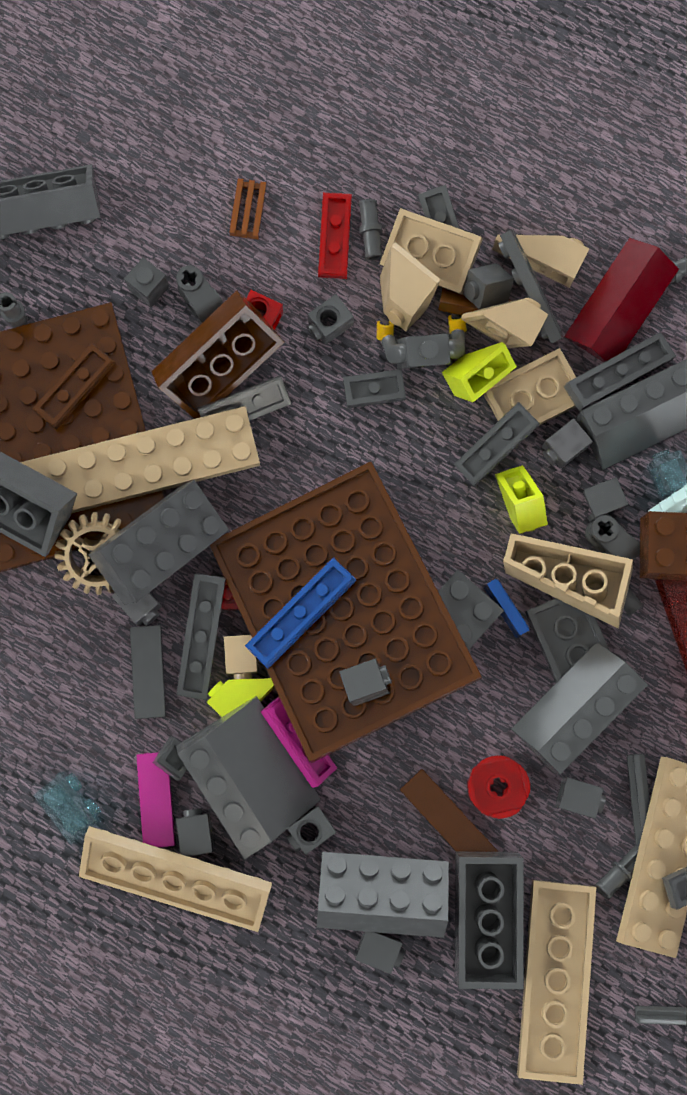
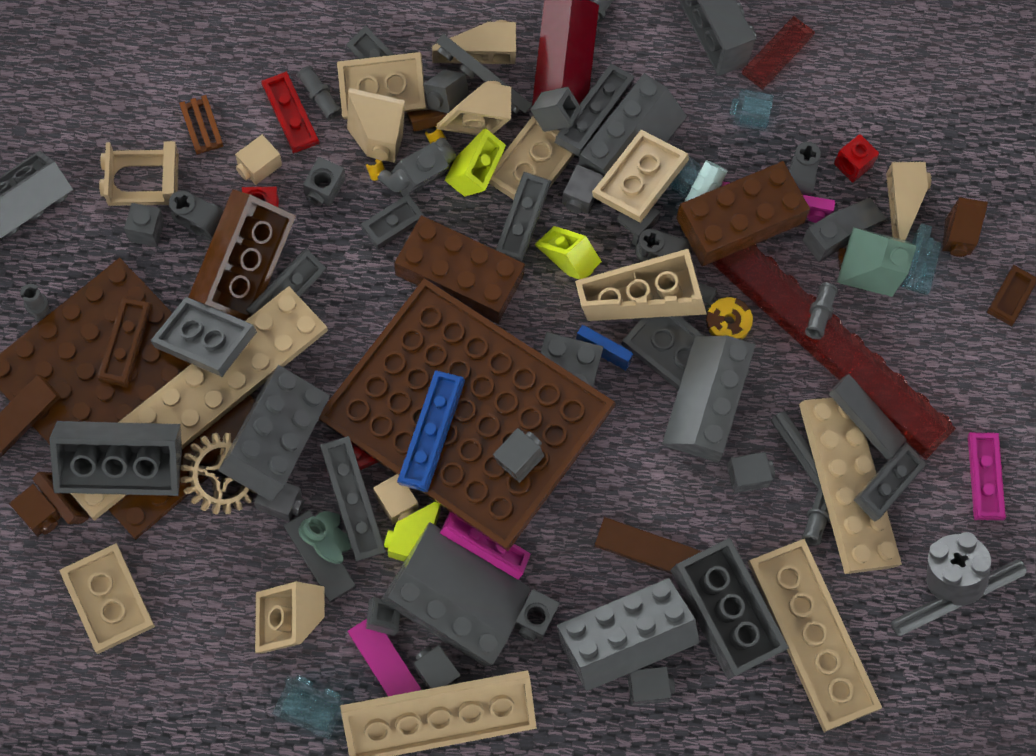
camera: 30 degrees left, 10 degrees down
(90, 715) = (287, 615): none -> tan slope
(142, 418) = (203, 336): none -> dark grey plate
(152, 206) = (115, 160): none -> tan panel
(163, 662) = (325, 536): none -> sand green plate
(280, 269) = (258, 160): none -> tan brick
(411, 465) = (460, 267): none -> reddish brown brick
(513, 796) = (677, 482): red plate -> none
(581, 355) = (555, 109): none -> dark grey brick
(628, 461) = (640, 176): none -> tan plate
(651, 632) = (733, 308): none -> yellow piece

